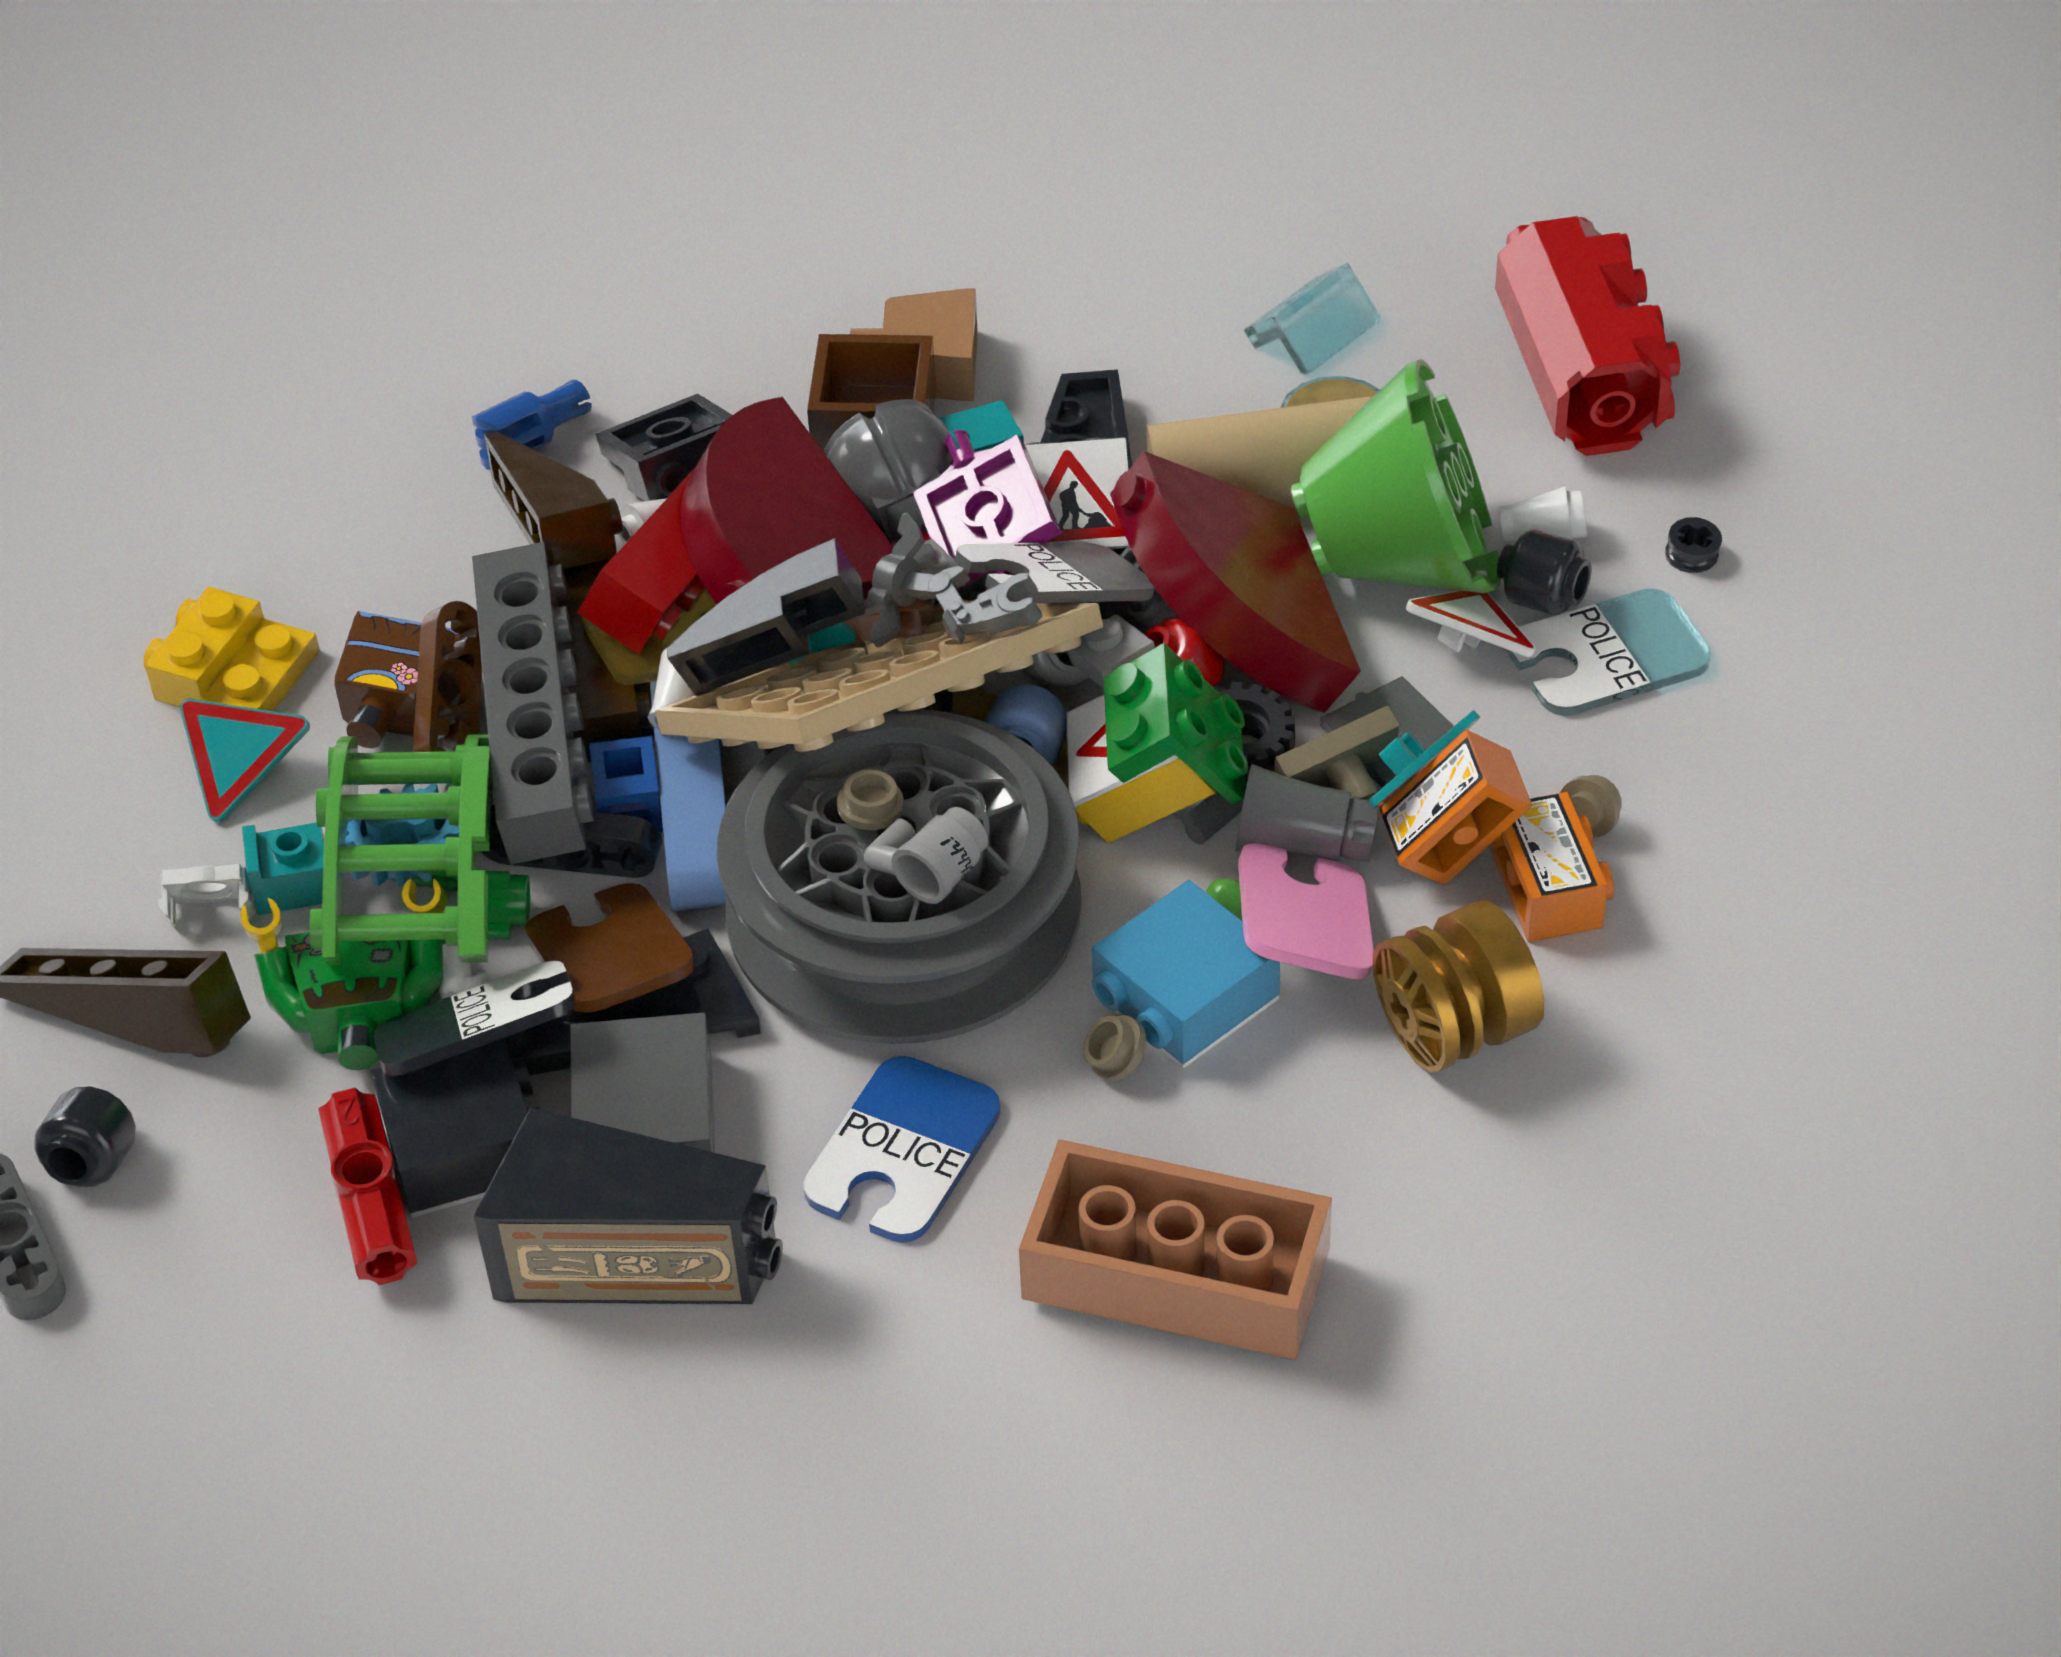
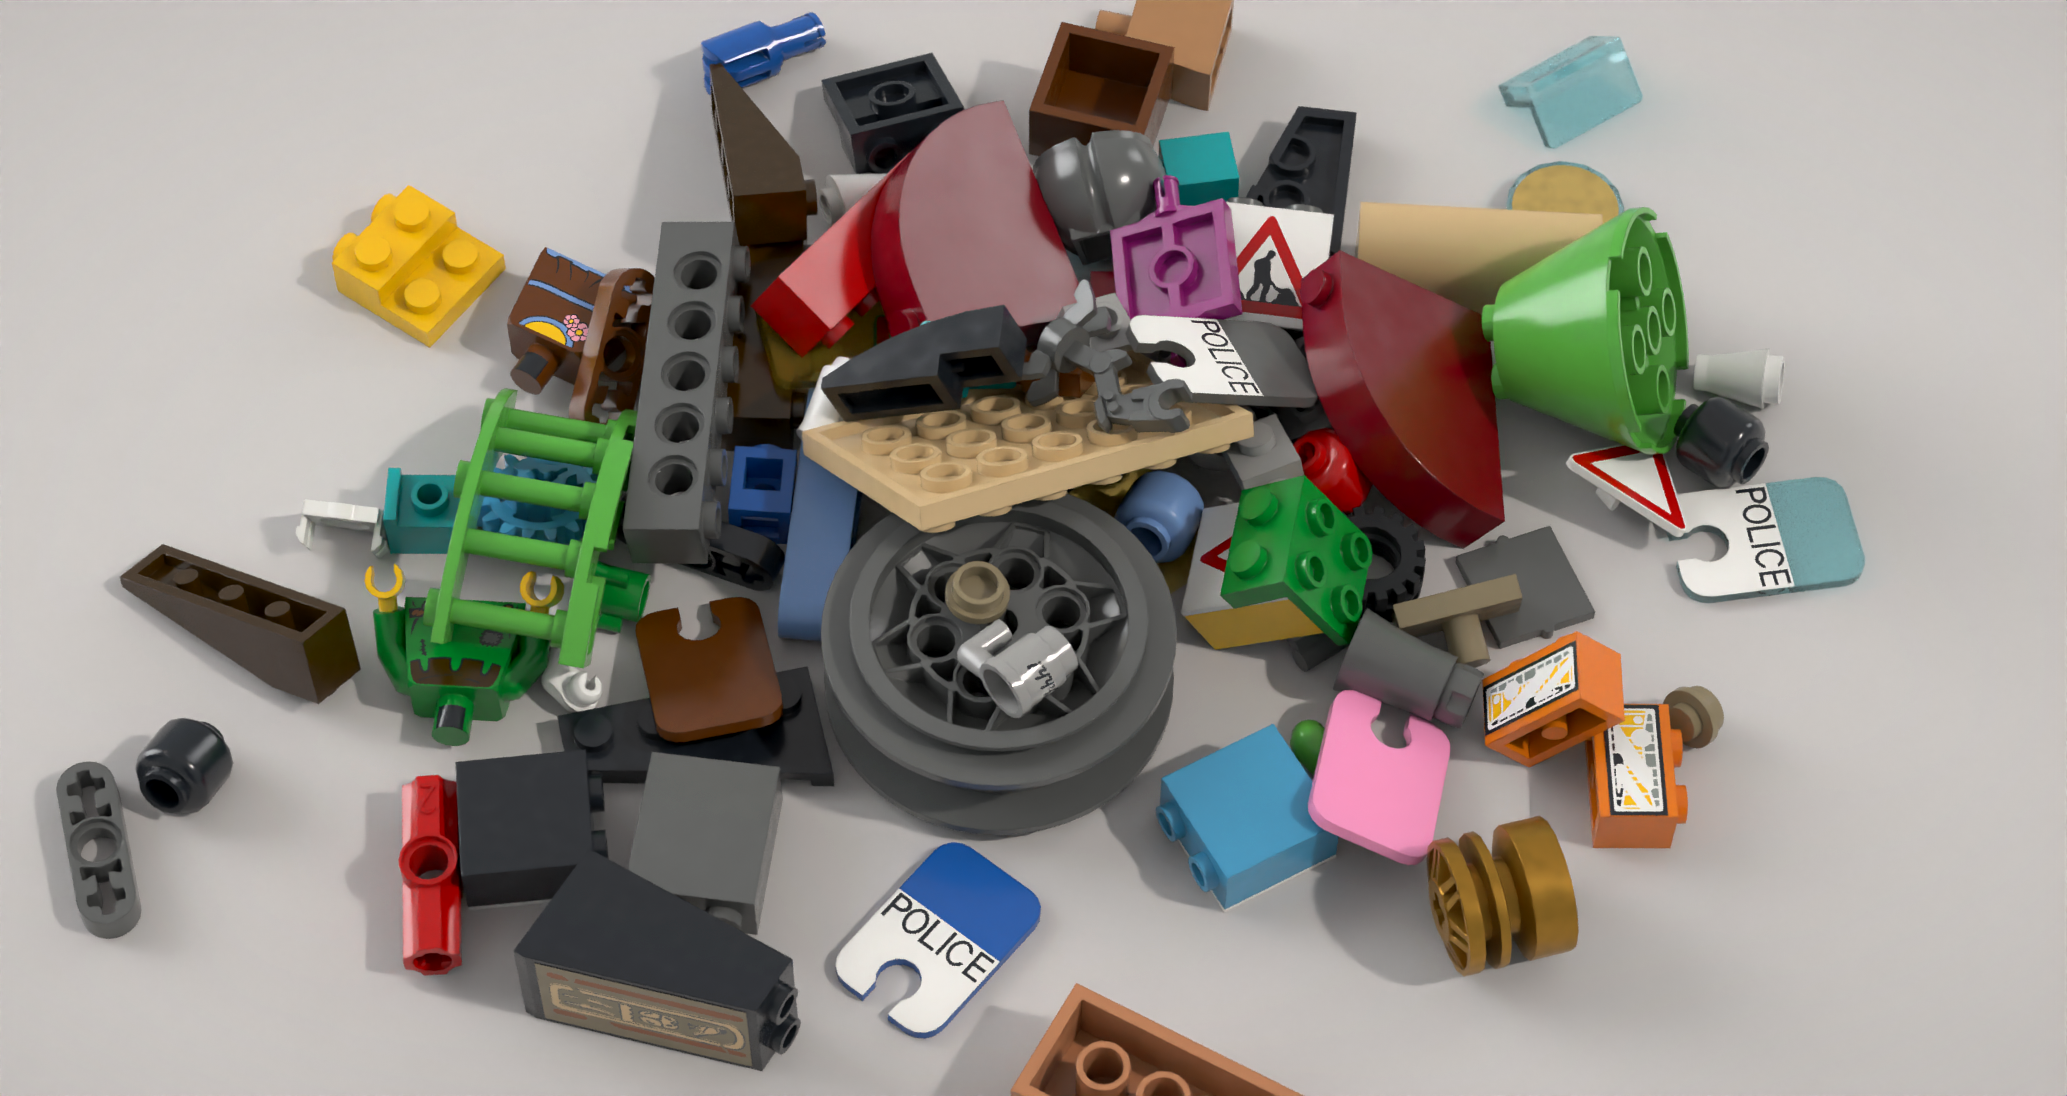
camera: 10 degrees right, 10 degrees up
(236, 749) = (401, 372): piece -> none
(473, 1018) = (560, 728): black piece -> none
(1115, 1046) = (1162, 881): dark tan plate -> none
(1408, 757) = (1523, 635): teal piece -> none
(1583, 336) = (1839, 173): red brick -> none
(1693, 532) = (1888, 422): black bush -> none

